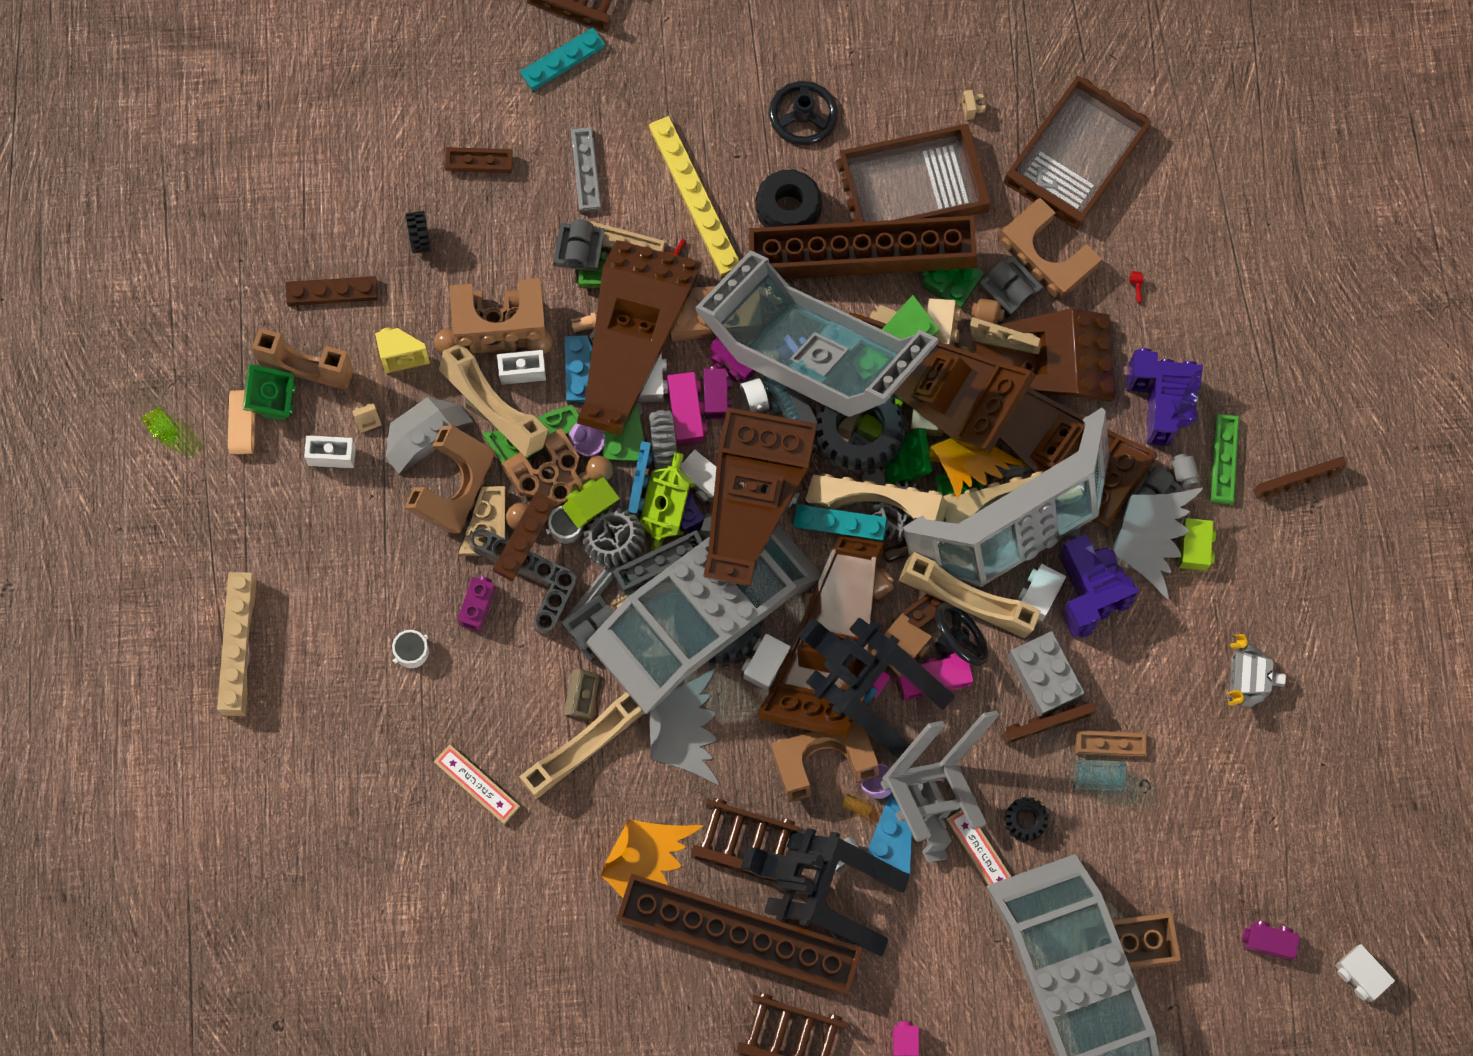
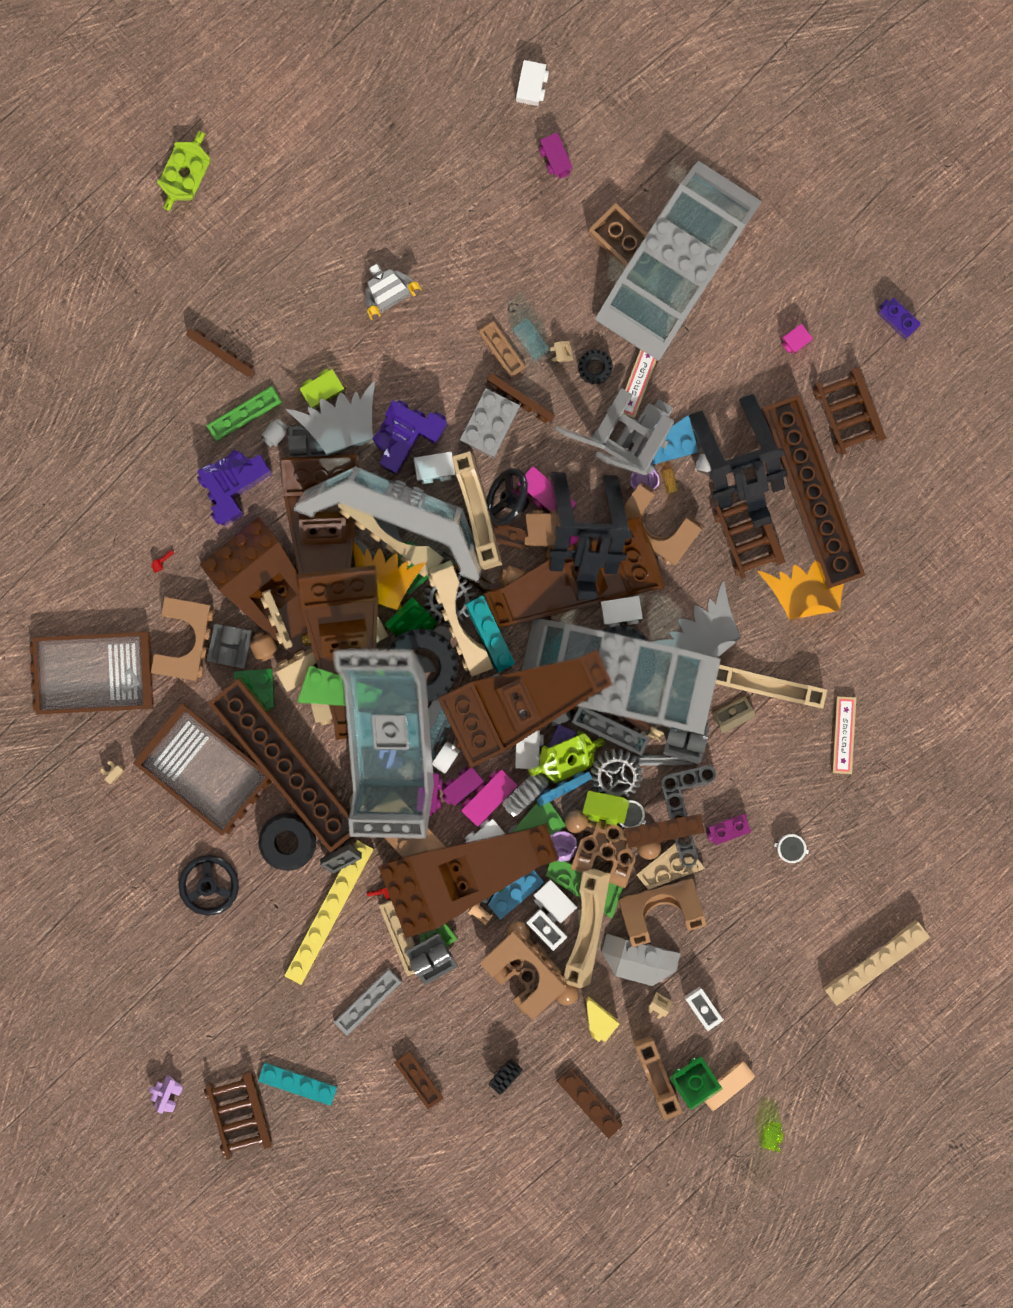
camera: 125 degrees left, 15 degrees up
(540, 395) = (554, 901): none -> white brick
(736, 238) = (341, 857): none -> dark grey tile
(1065, 798) = (563, 351): none -> tan tile

